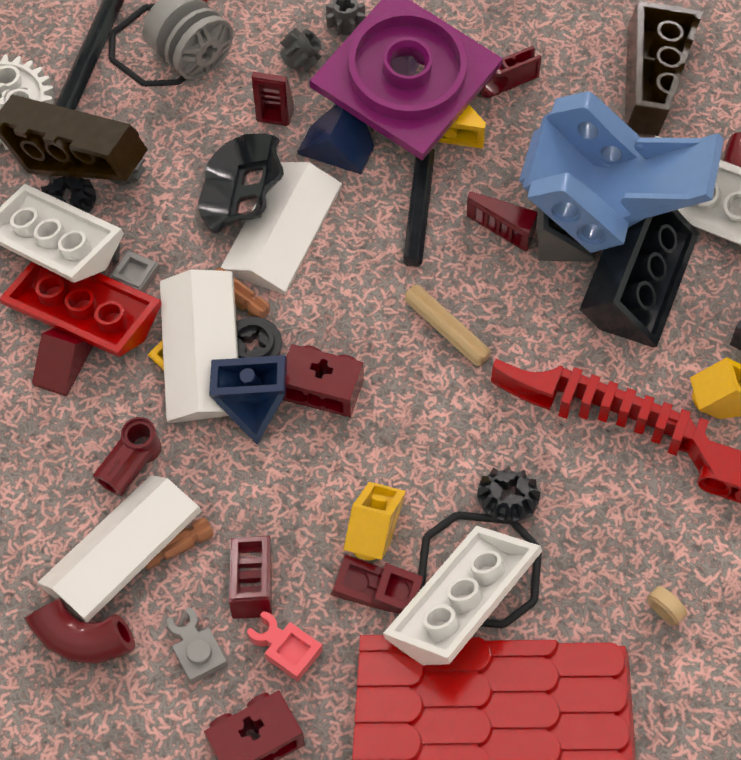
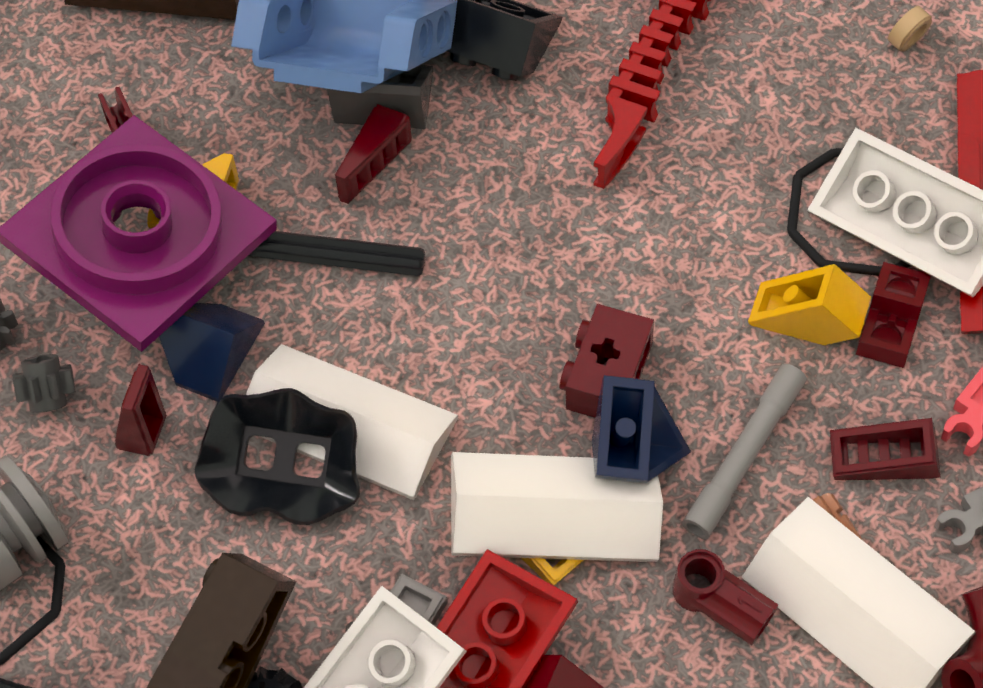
camera: 85 degrees left, 0 degrees up
(246, 301) = (434, 492): nougat axle -> none
(269, 337) = (536, 431): black gear -> none
(290, 495) = (717, 495): none -> light grey piece
(447, 325) = (522, 227): tan axle -> none
(515, 506) = (774, 186): black gear -> none

